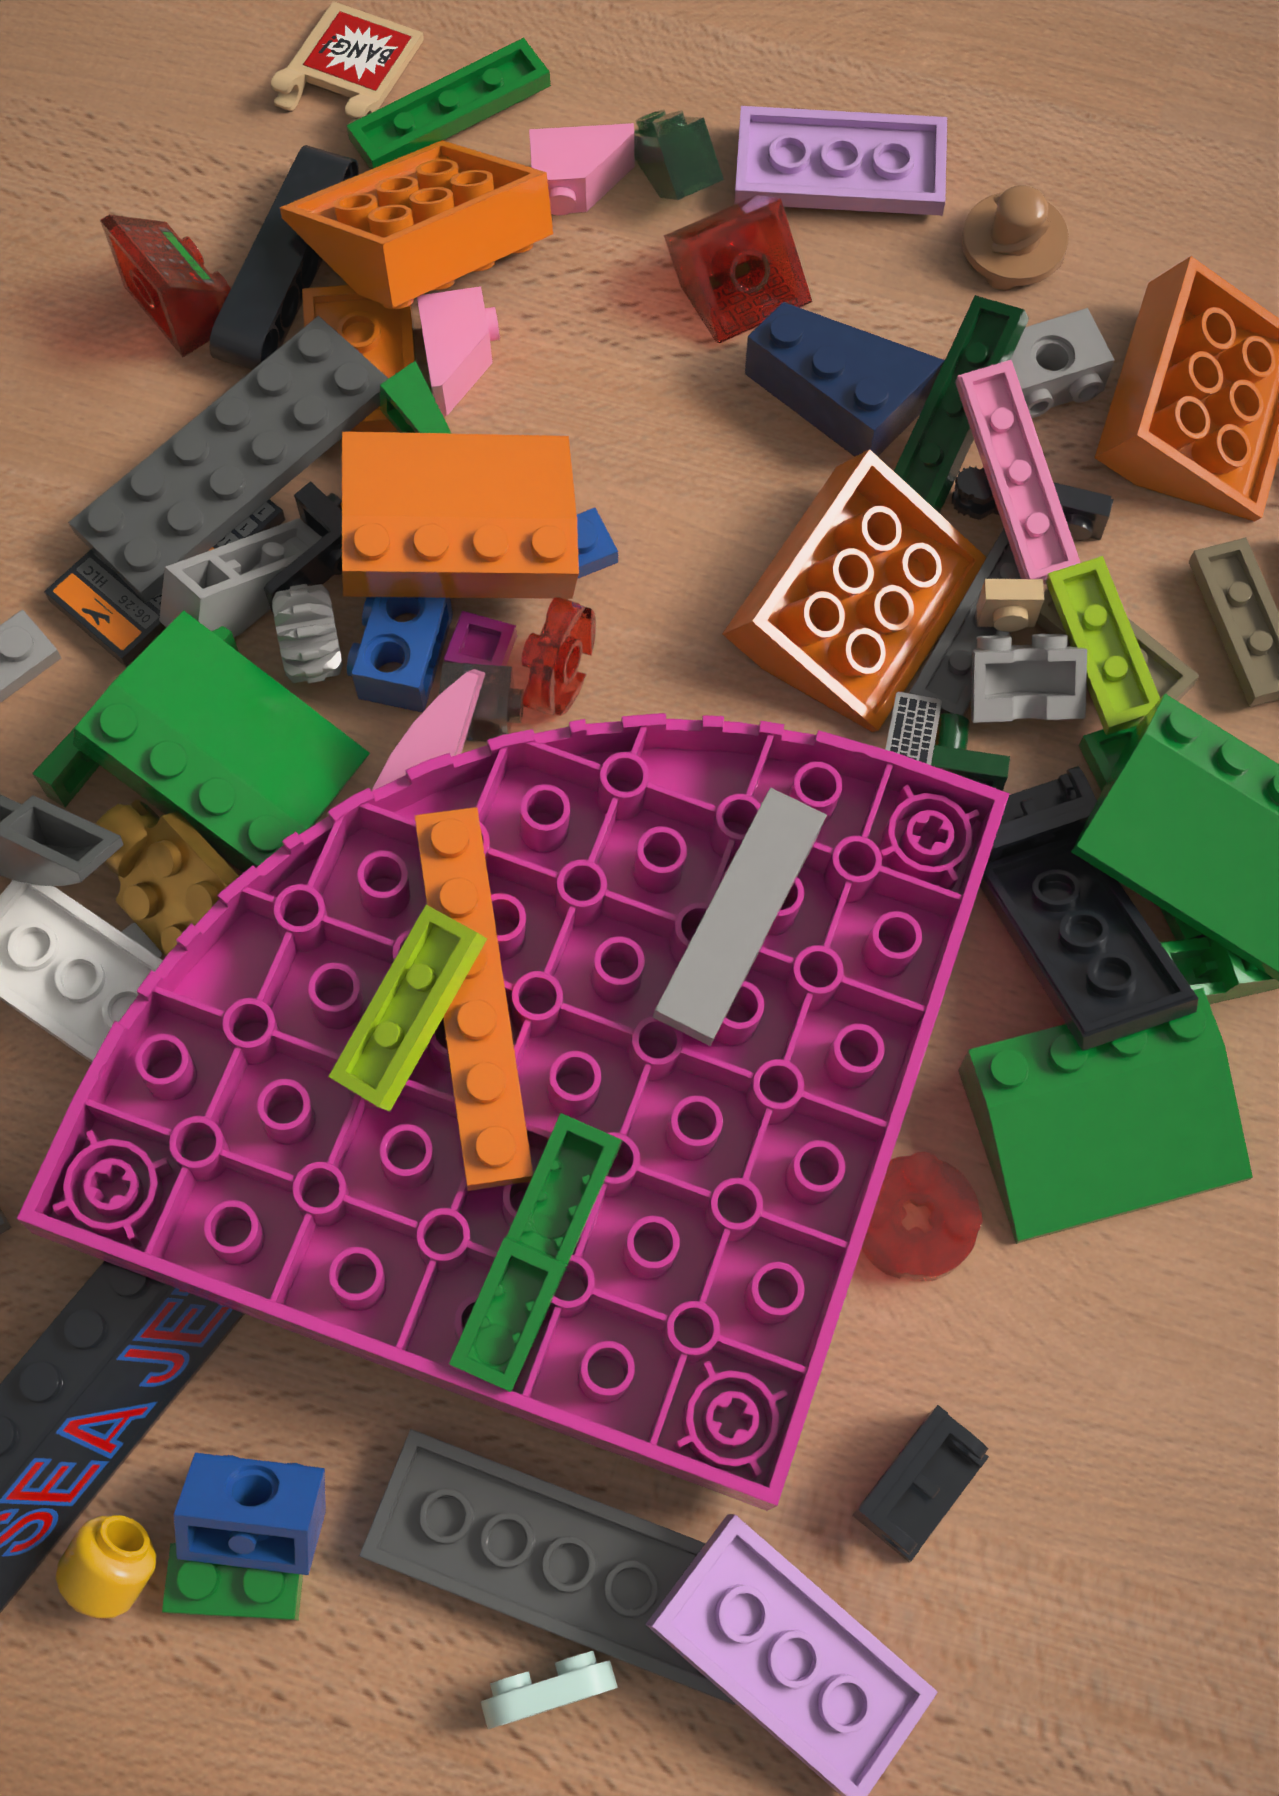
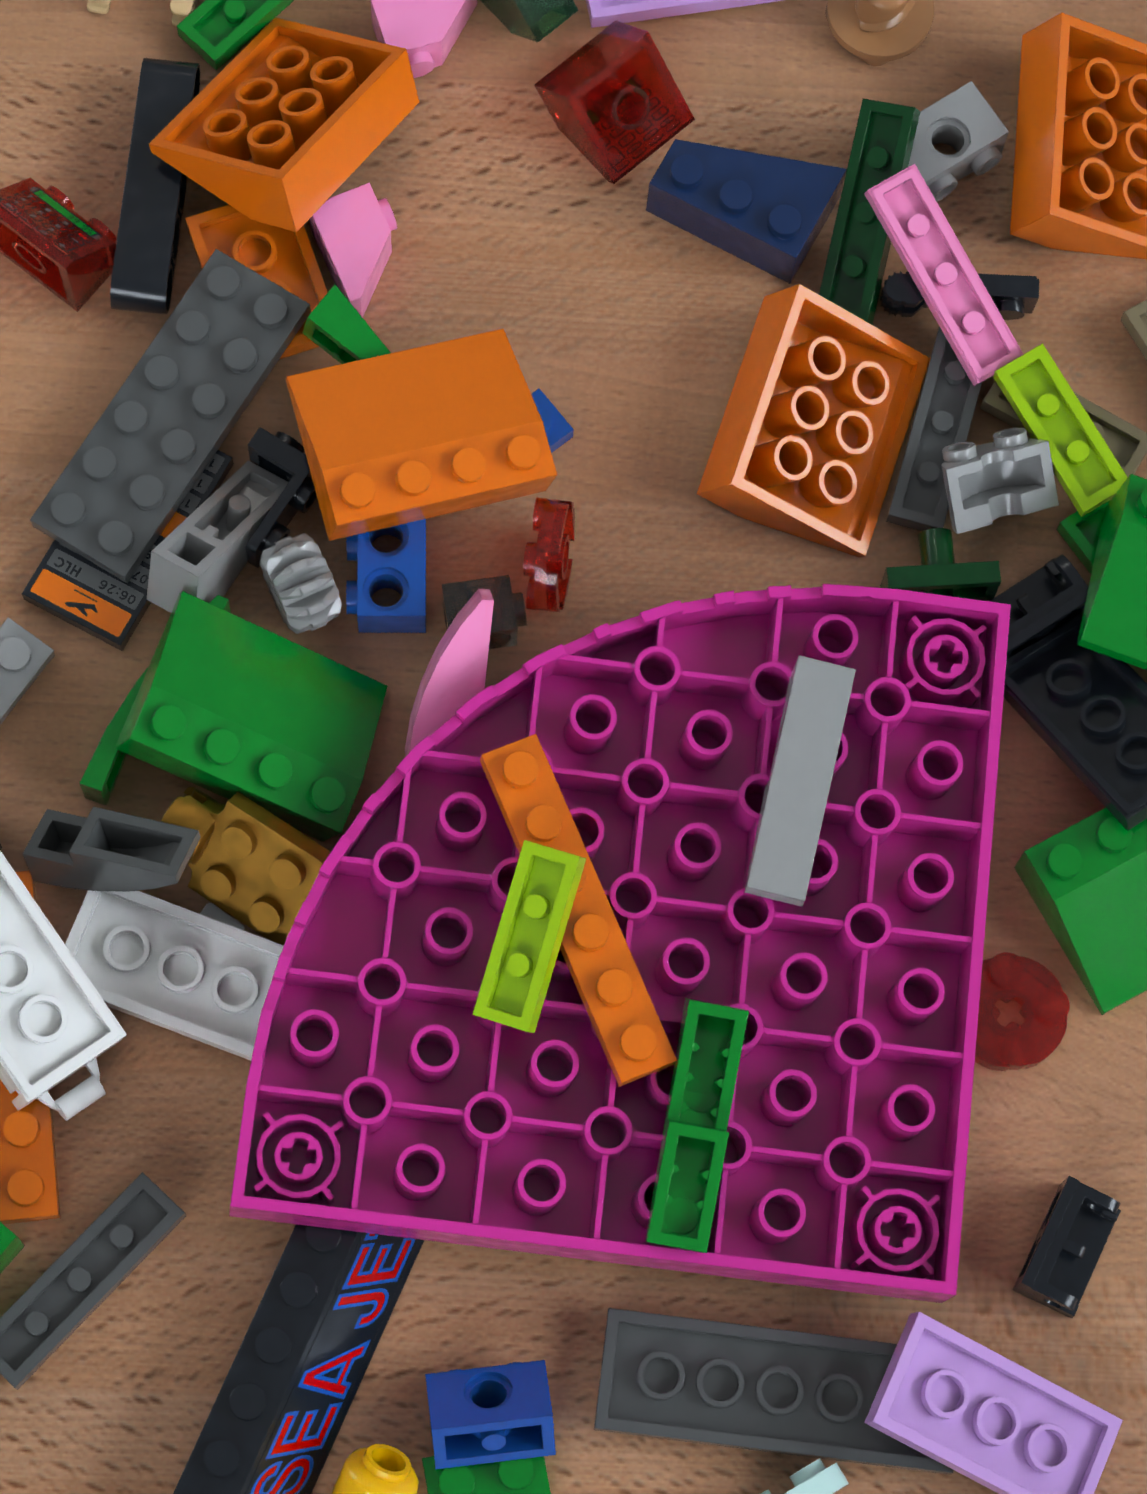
camera: 20 degrees left, 5 degrees up
(481, 641) = (466, 554): magenta plate -> none
(914, 726) = (902, 553): sticker -> none
(1010, 603) = (965, 409): tan plate -> none

